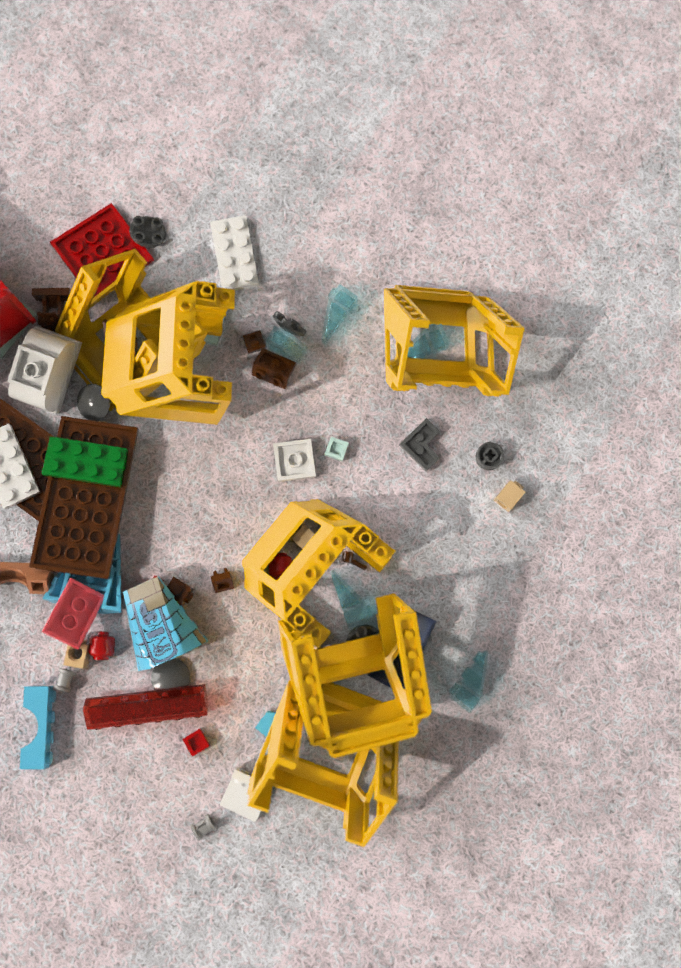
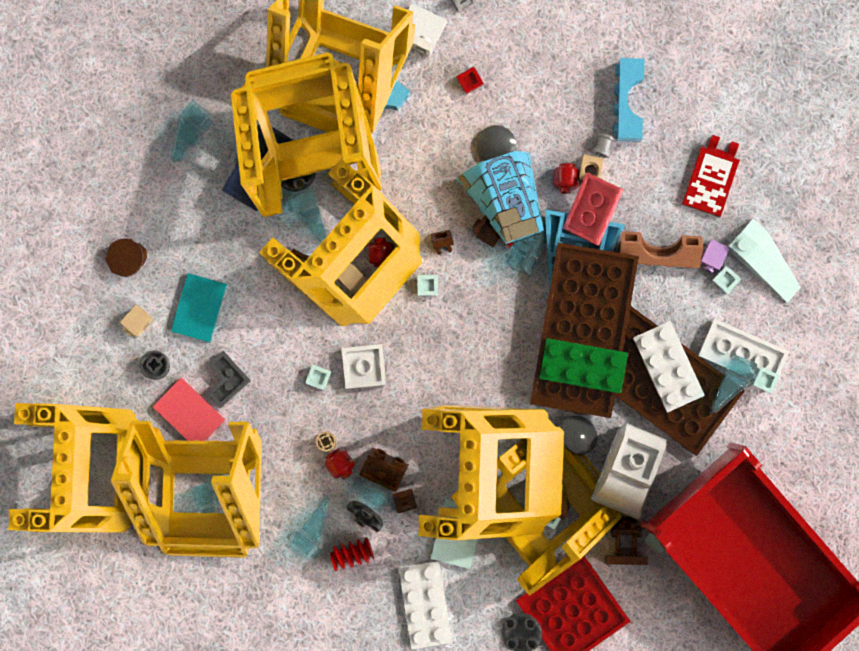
camera: 175 degrees left, 5 degrees up
(139, 572) = (526, 251): none -> clear light blue slope
(145, 707) = (519, 115): clear red brick -> none
(235, 537) = (427, 285): none -> light aqua plate
(301, 292) = (351, 554): none -> red piece
(314, 371) = (339, 464): none -> red head
(329, 393) = (326, 441): none -> tan wheel
(451, 511) = (199, 307): none -> teal tile
(455, 414) = (188, 412): none -> coral tile
(523, 555) = (125, 257): none -> reddish brown hat
(561, 319) = (70, 468): none -> yellow piece

